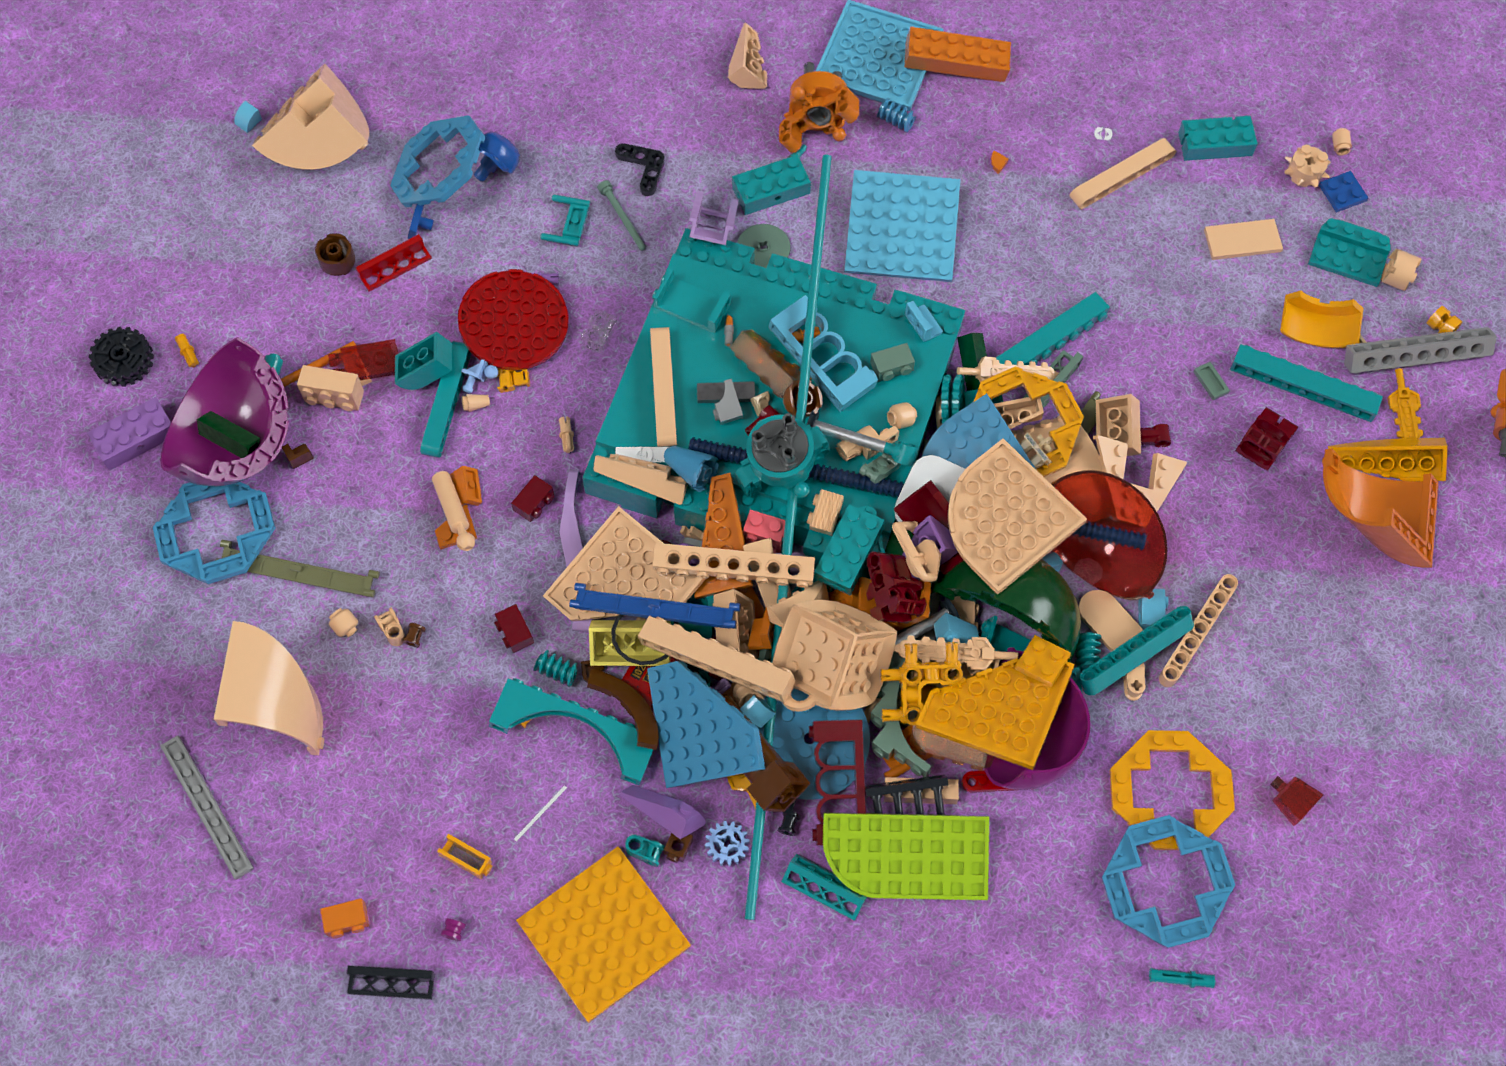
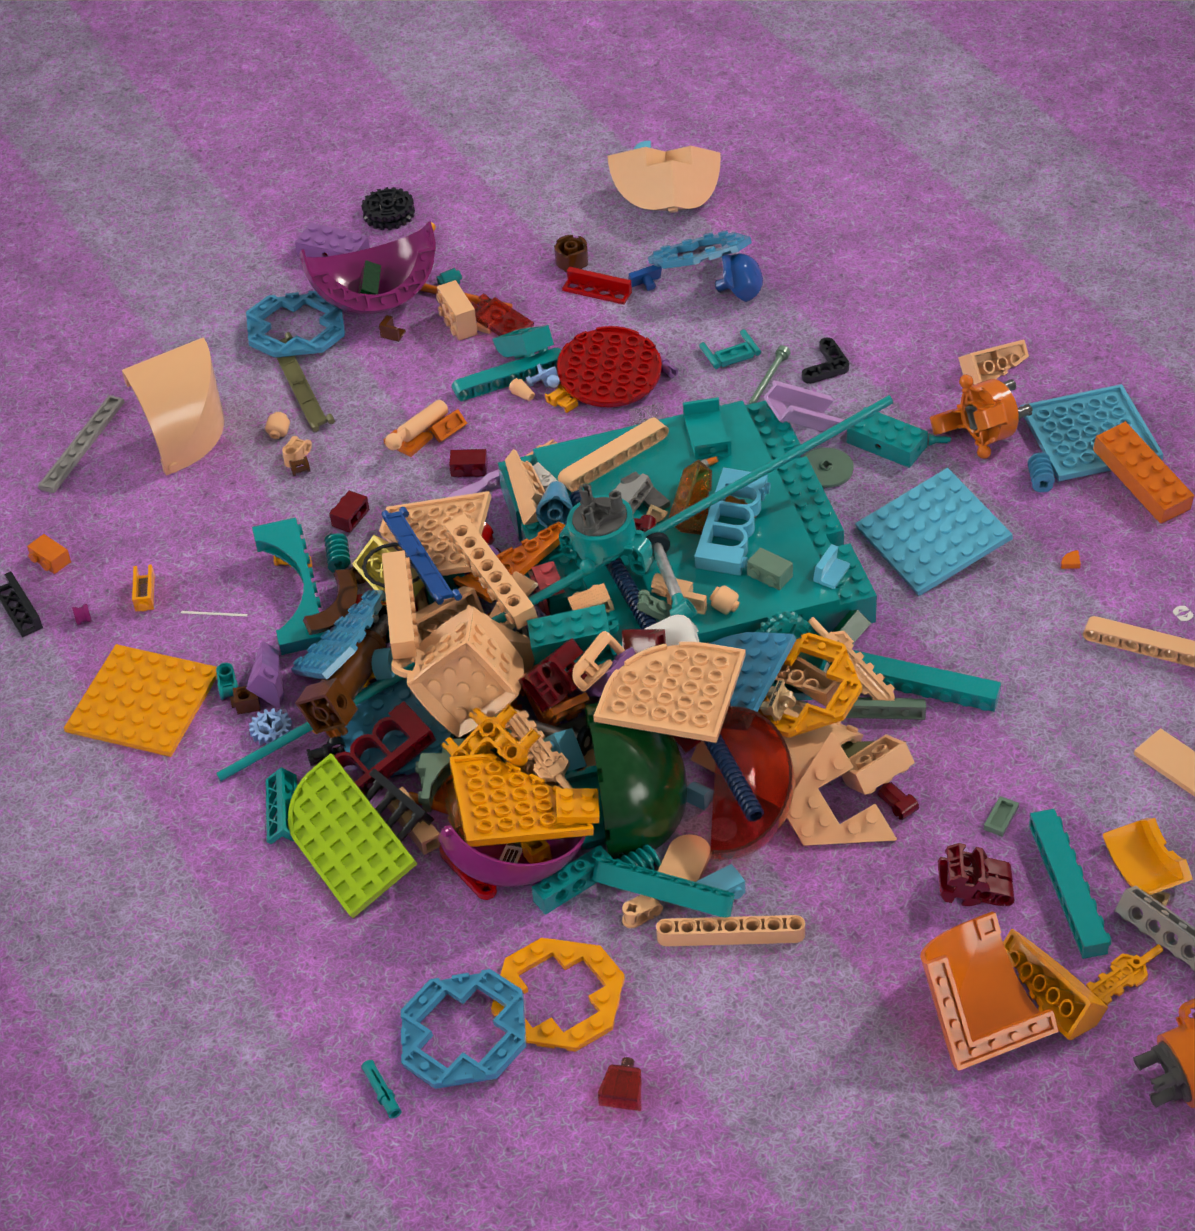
camera: 60 degrees right, 20 degrees down
(790, 398) = (681, 534): dark orange cylinder -> none

